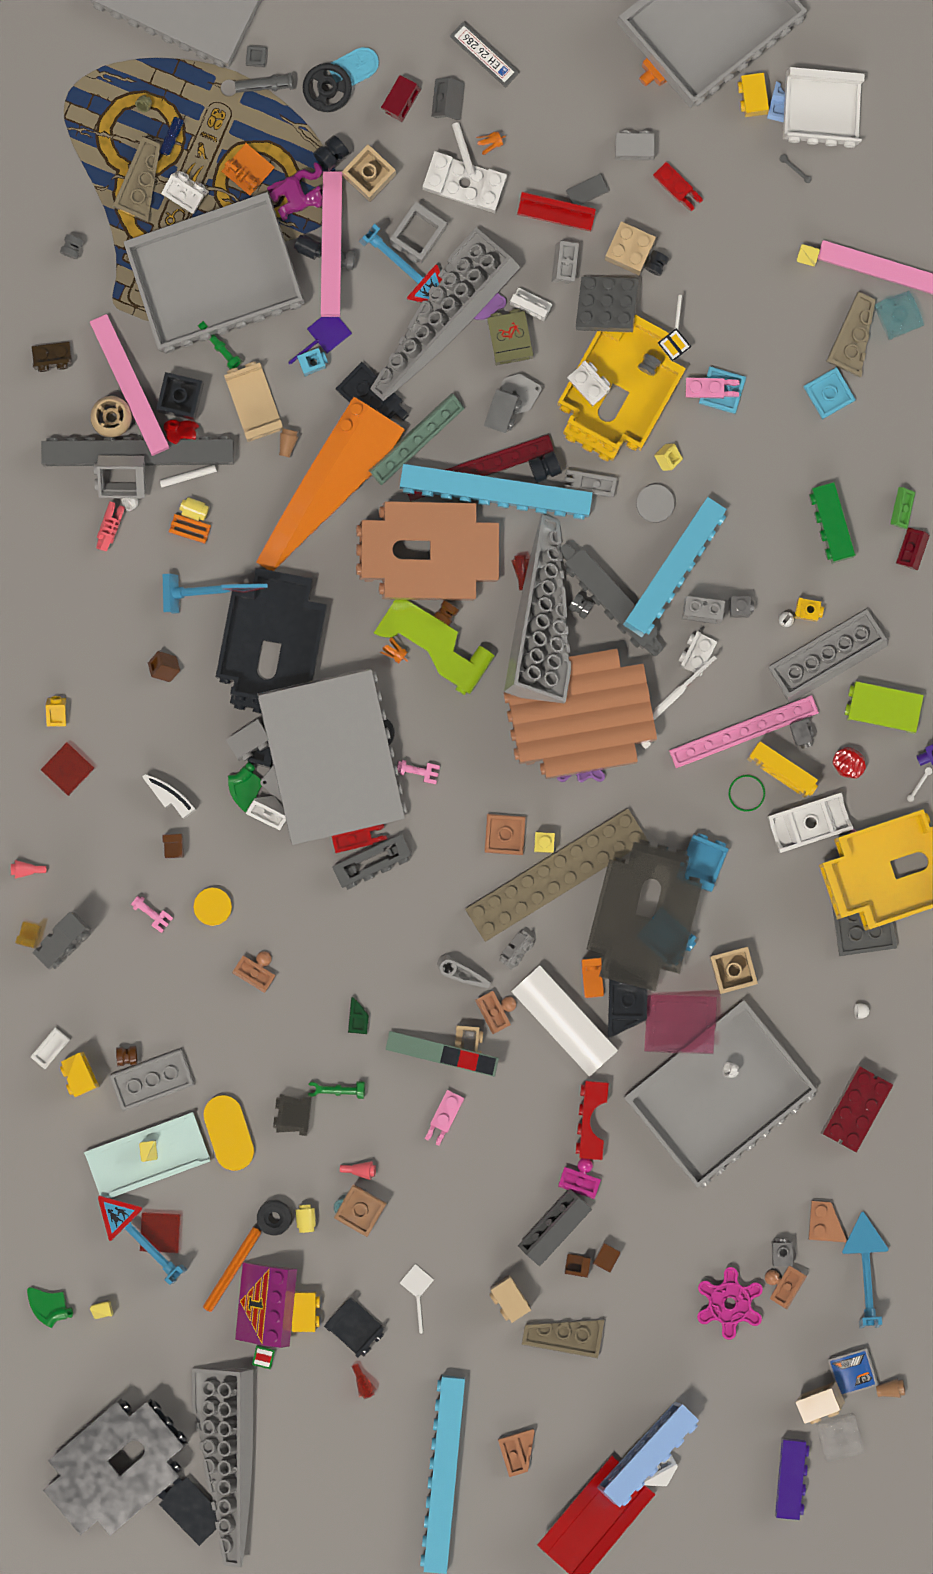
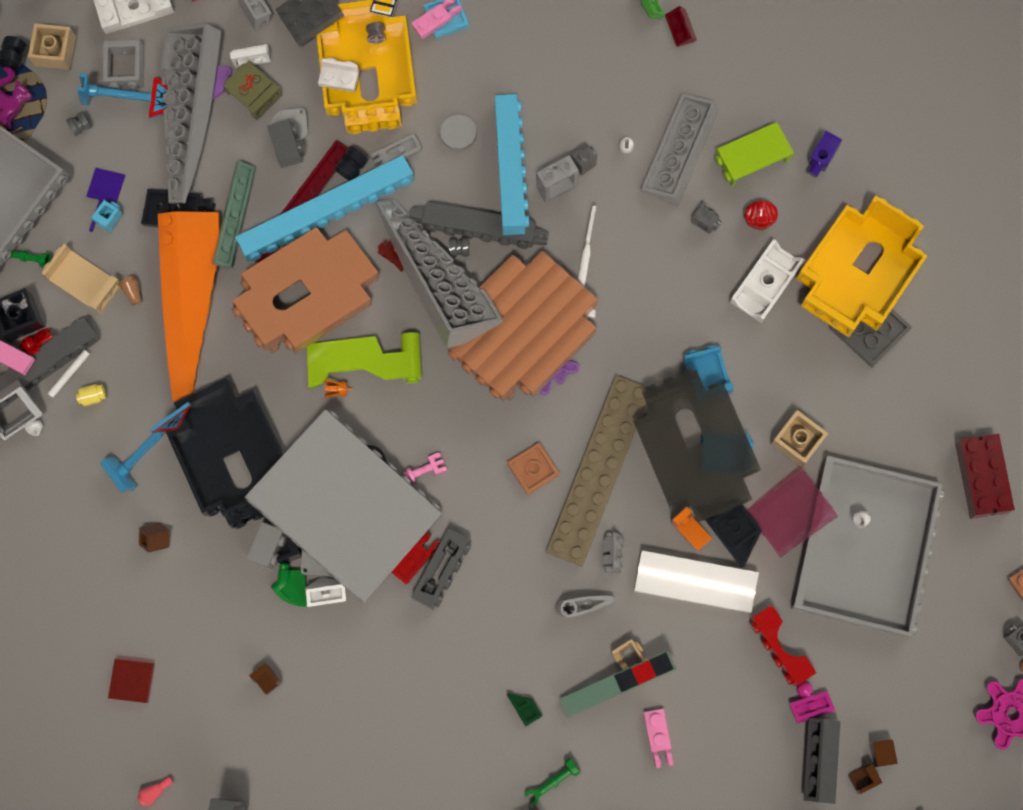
camera: 35 degrees left, 10 degrees down
(56, 711) = (88, 640): yellow bracket -> none
(109, 526) = (30, 458): coral hinge -> none
(158, 918) = (270, 749): bright pink hinge -> none
(170, 796) = (233, 639): white slope -> none
(174, 524) = (83, 418): orange tile -> none
(212, 906) = (335, 705): yellow tile -> none
(254, 972) = (411, 734): nougat plate -> none
(308, 247) = (43, 133): black brick -> none
(331, 244) = (59, 117): bright pink tile -> none
(446, 617) = (355, 328): reddish brown wheel -> none
(494, 1011) = (634, 617): nougat plate -> none
(544, 842) = (570, 450): light yellow brick -> none
(668, 457) = (442, 91): light yellow slope -> none
(698, 652) = (578, 218): white bracket -> none
(738, 808) = (699, 313): green piece -> none
(743, 731) = (659, 252): bright pink tile -> none
(783, 770) = (714, 254): yellow door -> none
(802, 613) = (637, 130): yellow brick -> none
(832, 523) = (605, 49): green brick -> none
(861, 1011) = (923, 397): white hinge -> none
(927, 771) = (824, 179): white hinge -> none

